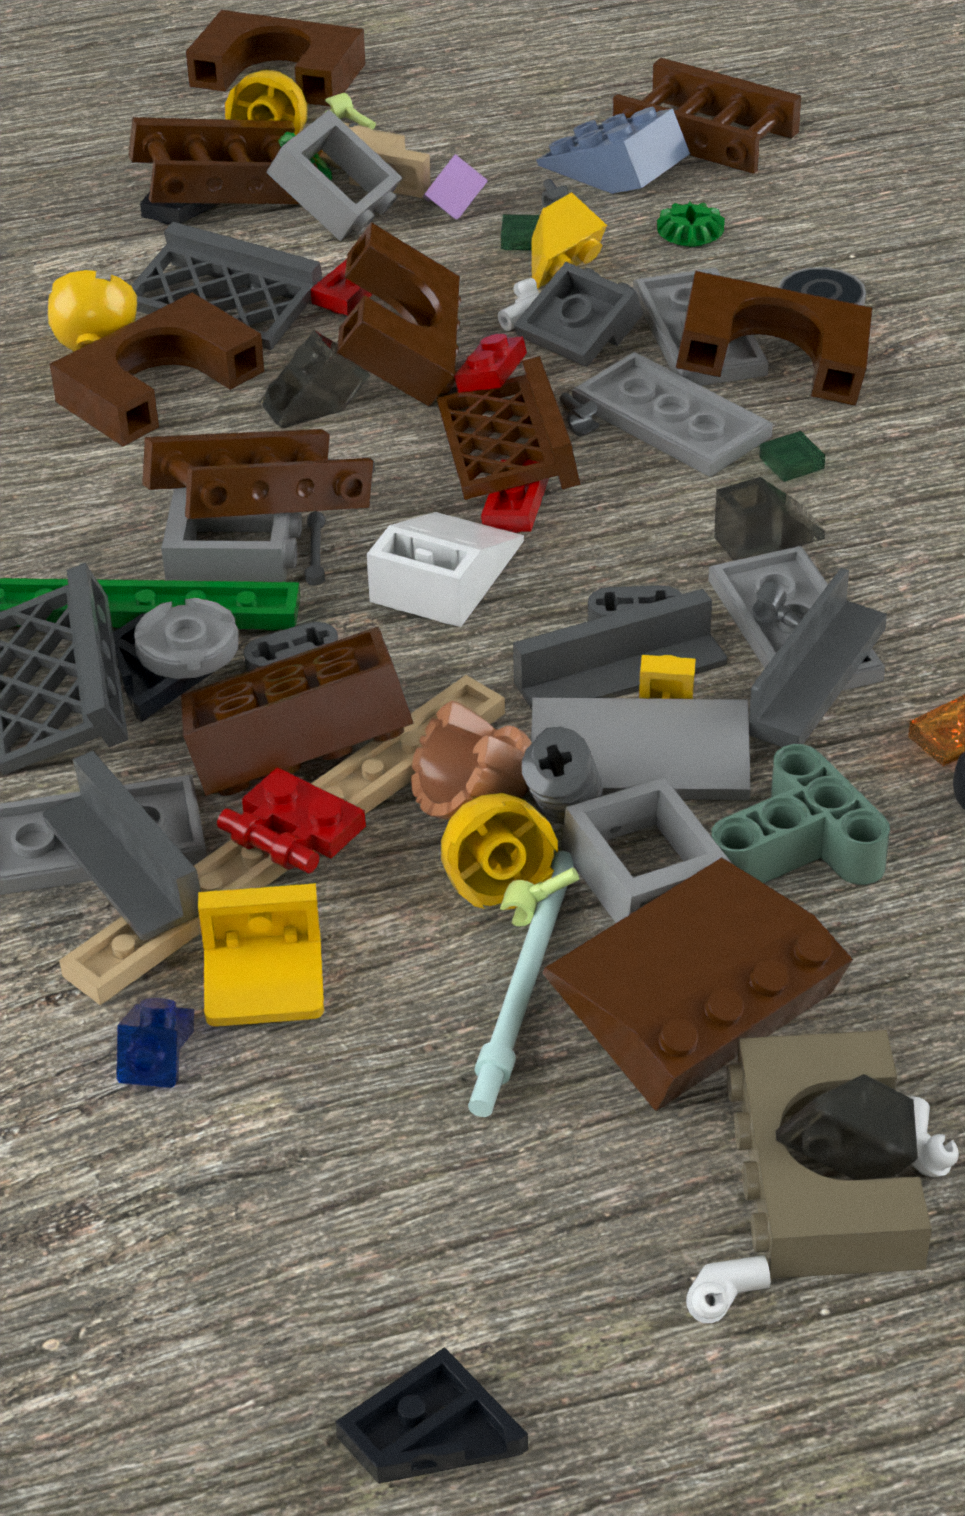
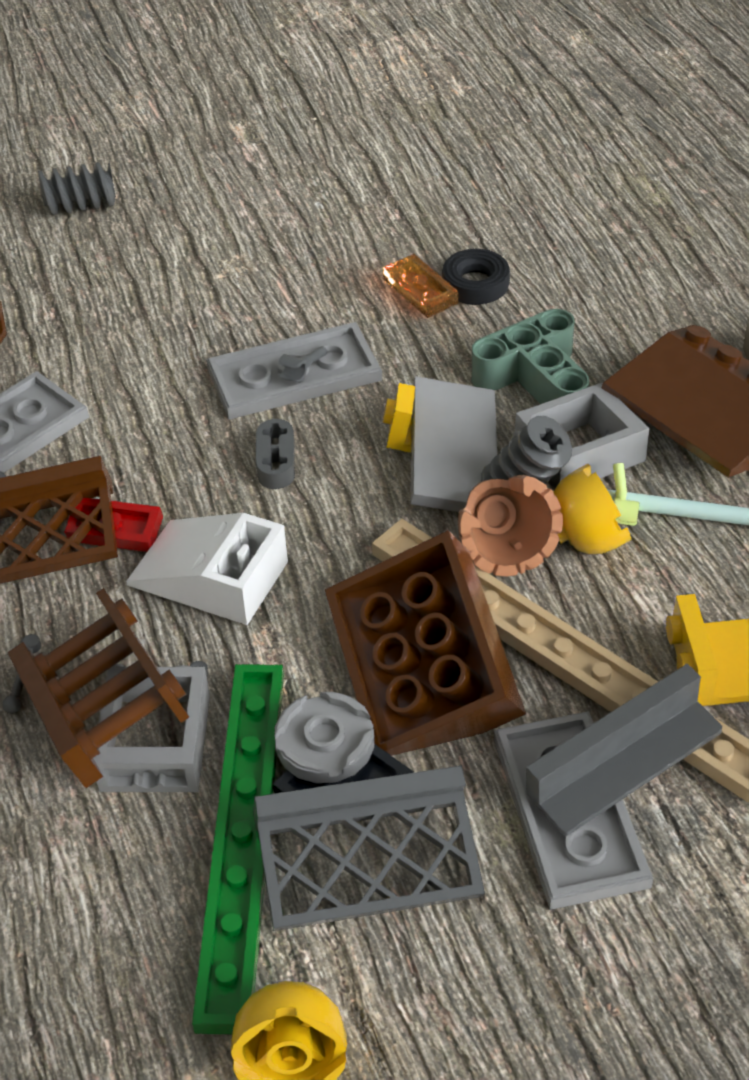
camera: 90 degrees left, 5 degrees up
(287, 643) = (330, 669): dark grey beam -> none
(303, 816) = (563, 630): red plate -> none
(605, 653) = (340, 464): dark grey panel -> none
(761, 519) = (188, 373): clear smoke slope -> none
(792, 456) = (79, 364): clear green tile -> none
(813, 666) = (370, 344): dark grey panel -> none

